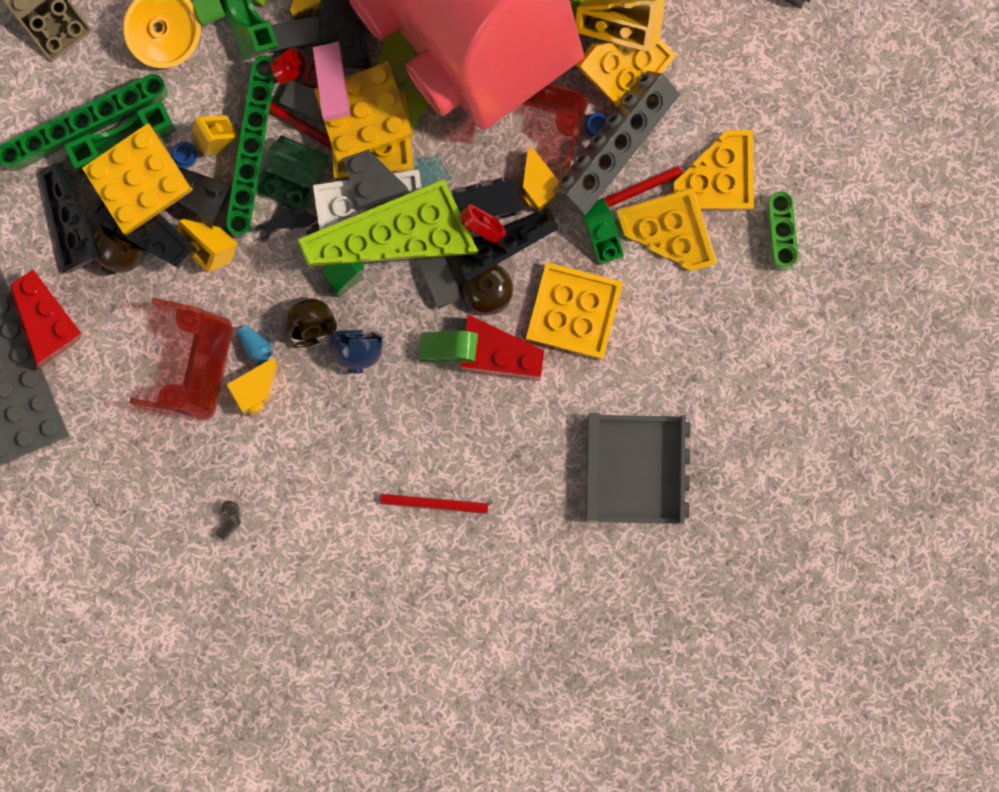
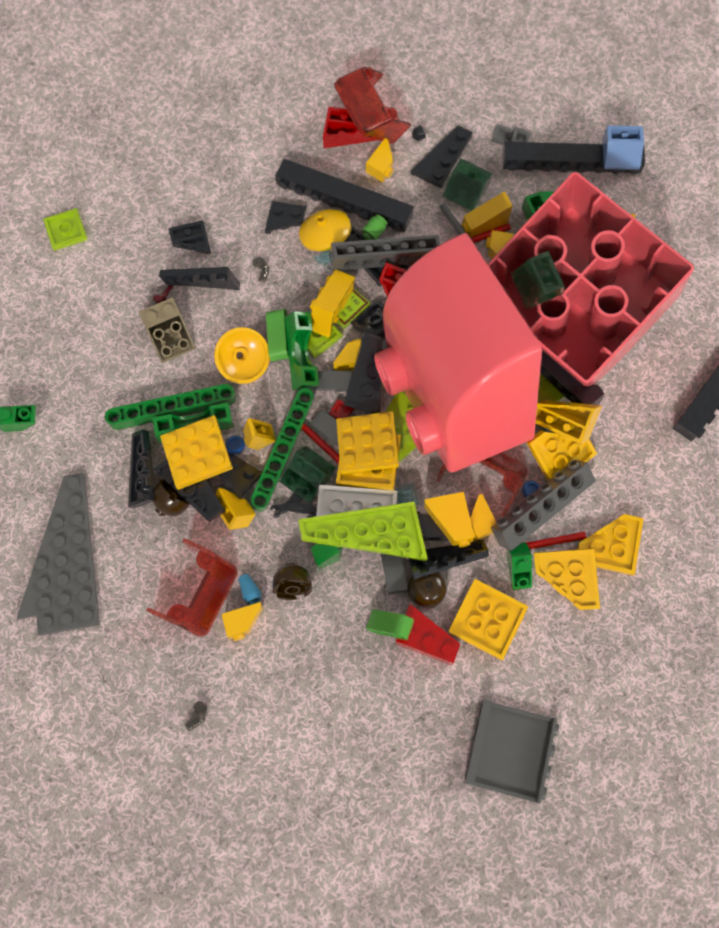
camera: 15 degrees right, 10 degrees down
(43, 319) = (104, 539): red wedge -> none
(288, 66) = (322, 399): red plate -> none
(331, 81) = (350, 416): bright pink tile -> none
(355, 350) = (321, 610): dark blue cylinder -> none
(372, 180) = (362, 490): dark grey wing -> none
(434, 503) = (353, 740): red bar -> none
(482, 223) = (434, 539): red plate -> none
(498, 189) = (452, 517): none -> yellow slope
(782, 218) = (658, 589): bright green beam -> none

